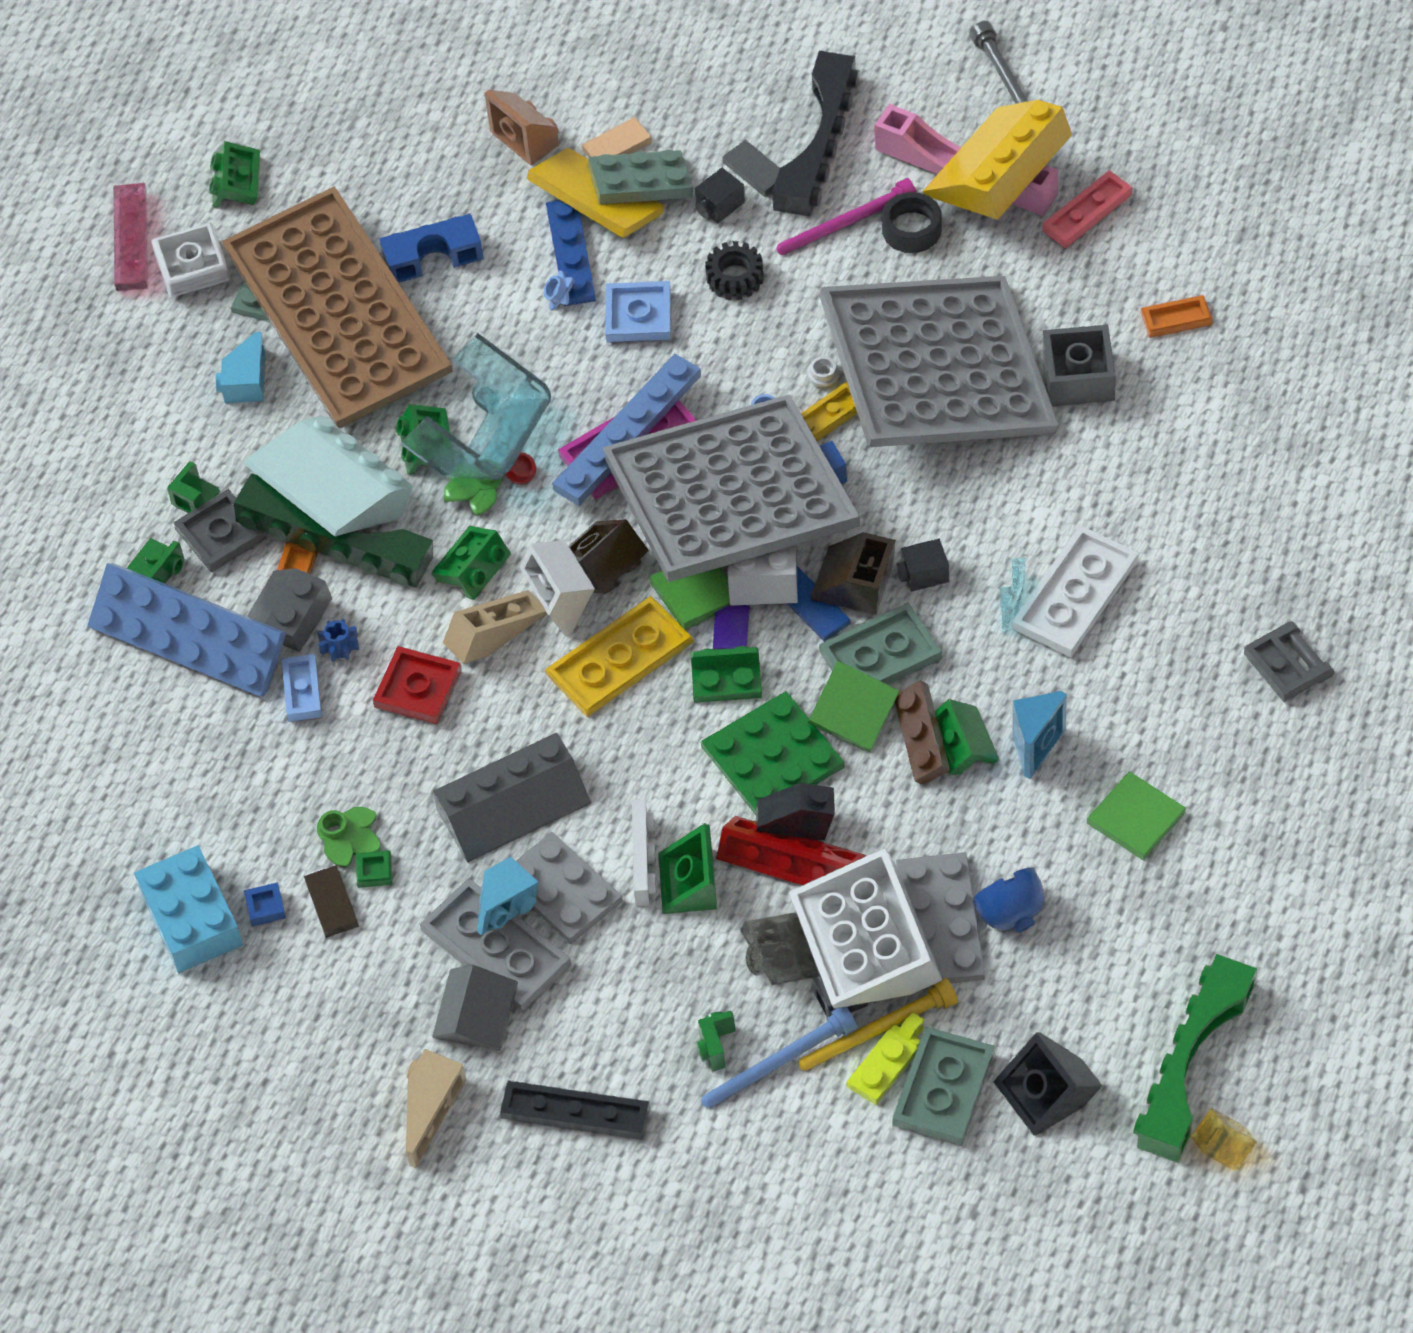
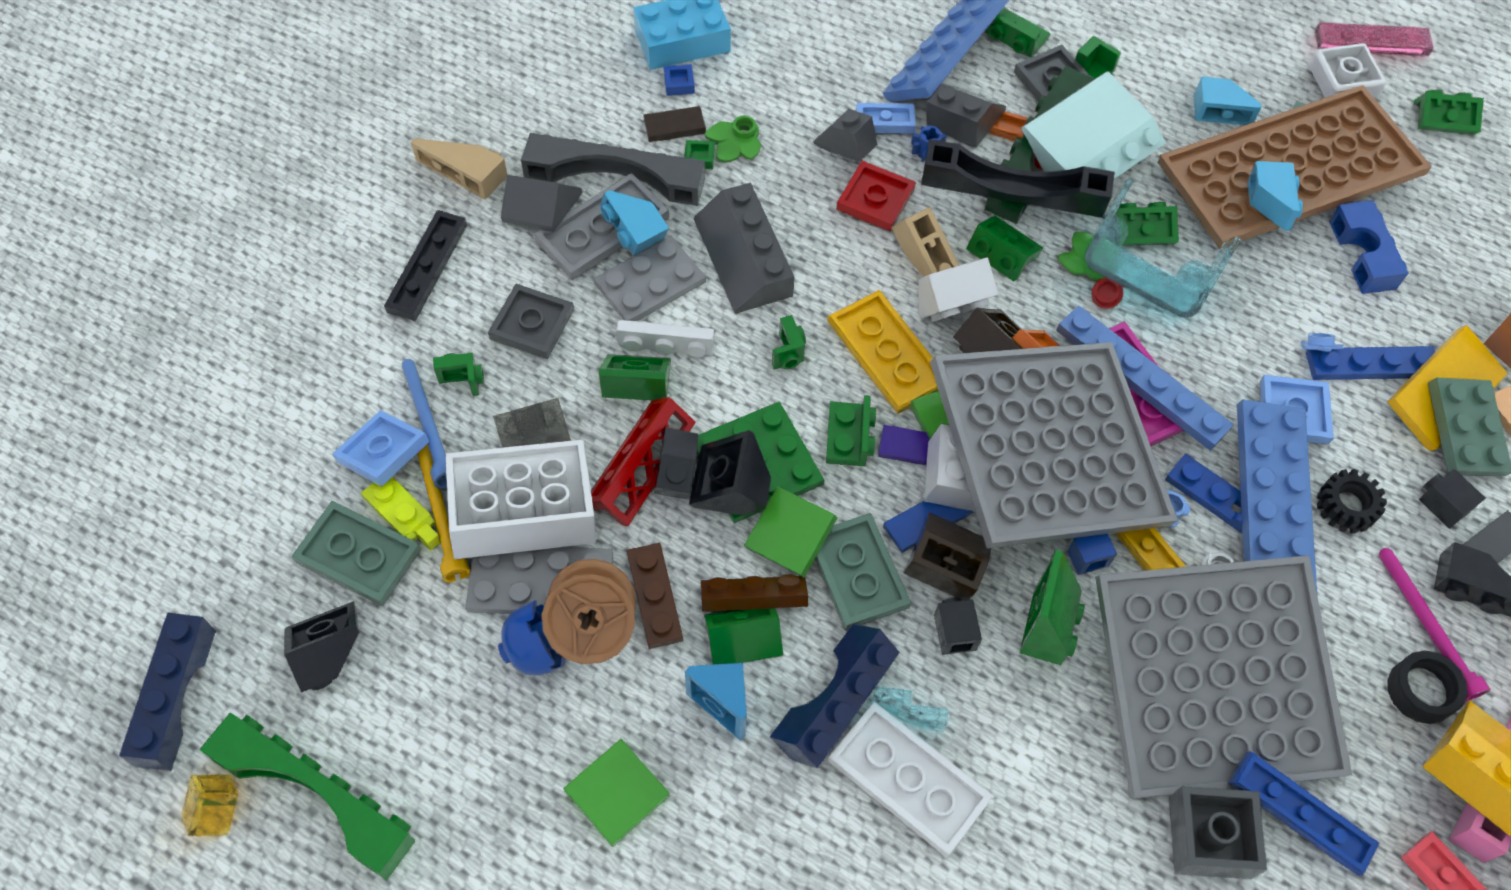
camera: 90 degrees right, 5 degrees up
(340, 717) = (849, 136): none -> dark grey slope
(394, 314) = (1274, 192): none -> medium azure slope
(411, 536) = (1073, 190): none -> black arch
(421, 881) = (555, 158): none -> dark grey arch
(602, 516) = (1034, 339): none -> orange tile
(630, 735) = (794, 345): none -> green bracket
(636, 988) = (531, 321): none -> dark grey plate
(738, 325) = (1274, 482): none -> medium blue plate
(741, 376) = (1207, 490): none -> blue plate
(807, 753) = (731, 476): none -> black slope
(823, 1087) = (381, 448): none -> light blue plate
(903, 487) = (1053, 613): none -> green slope
(936, 819) = (654, 596): none -> reddish brown plate
(991, 830) = (595, 634): none -> medium nougat piece
(1045, 309) = (1305, 814): none -> blue tile
(1052, 661) = (814, 728): none -> dark blue arch
(1160, 1199) = (156, 720): none -> dark blue arch

